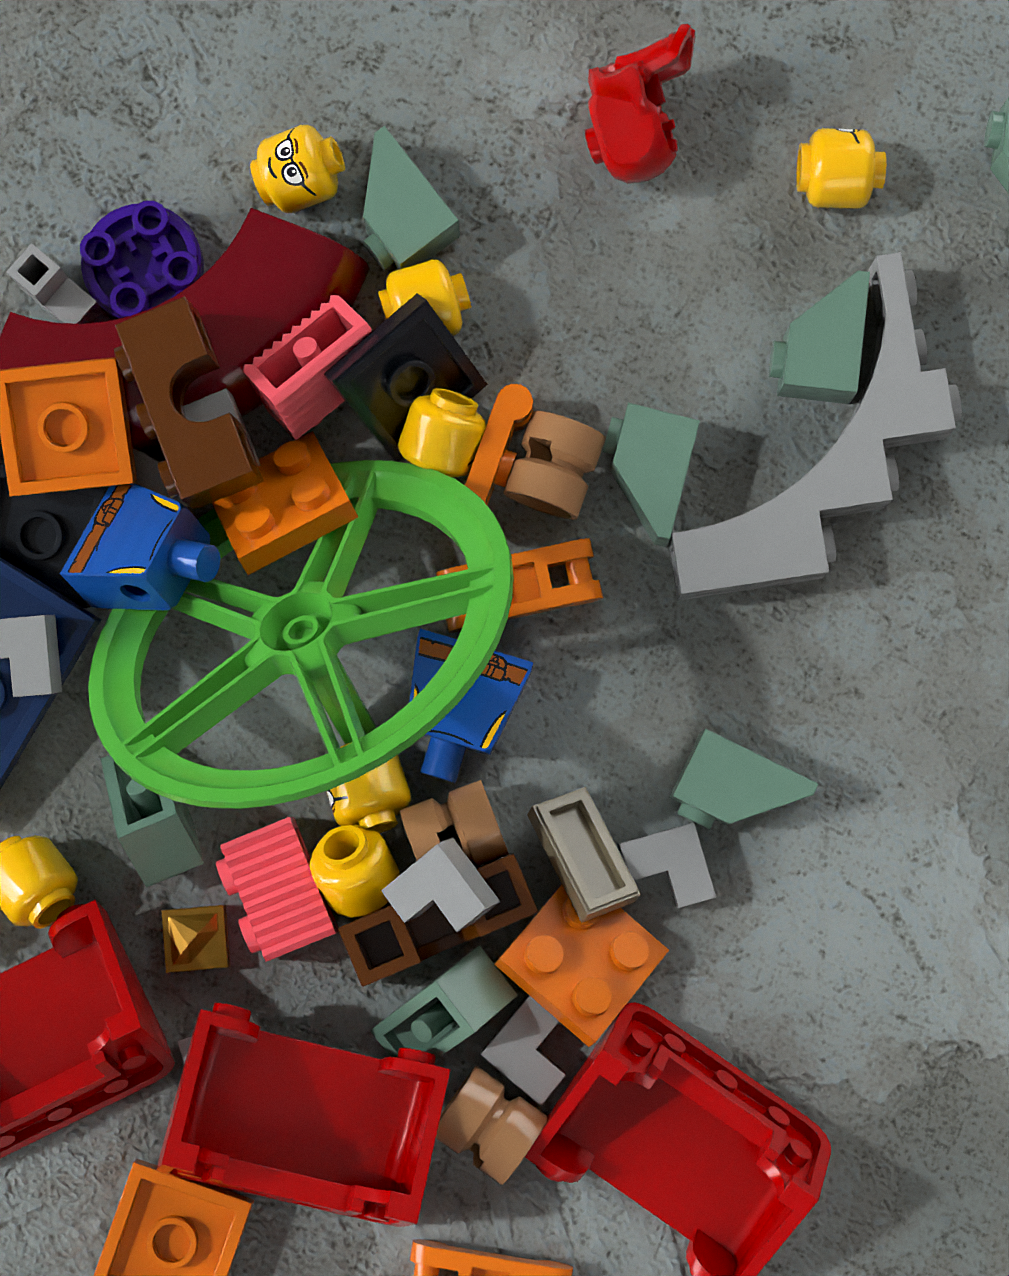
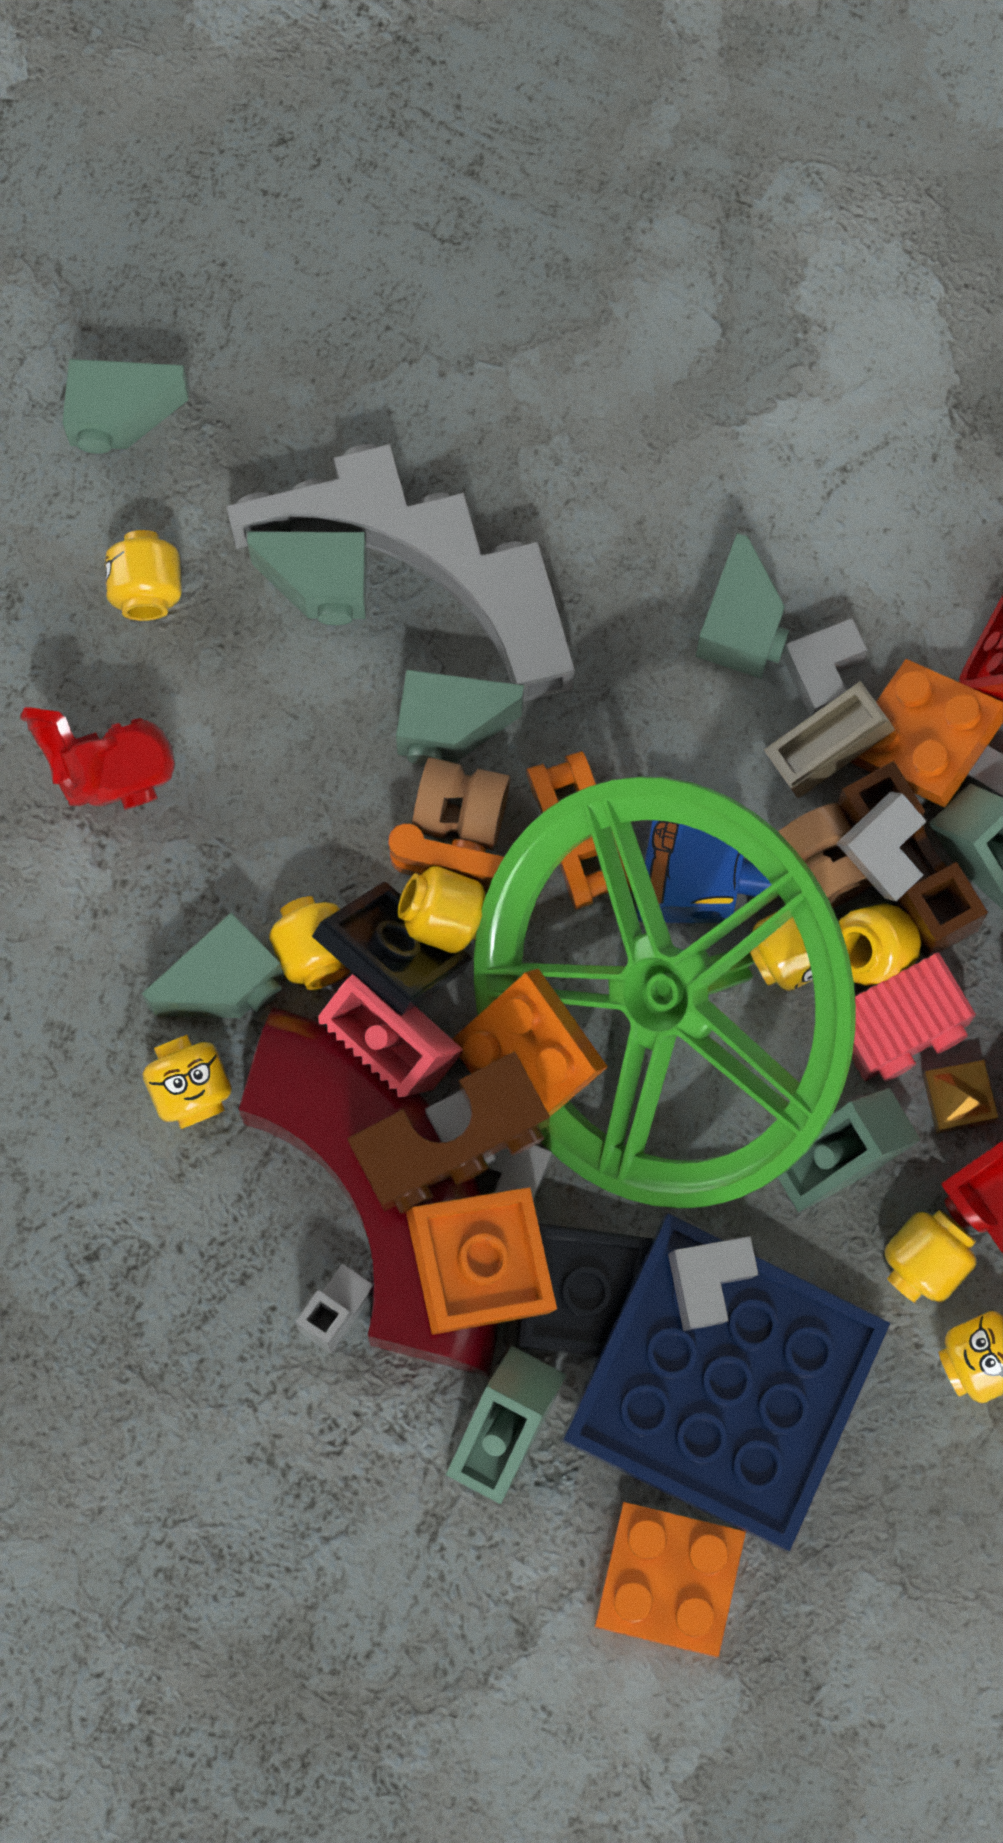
camera: 100 degrees left, 10 degrees down
(139, 258) = (294, 1231): dark purple tile -> none
(140, 552) = (595, 1175): blue torso -> none

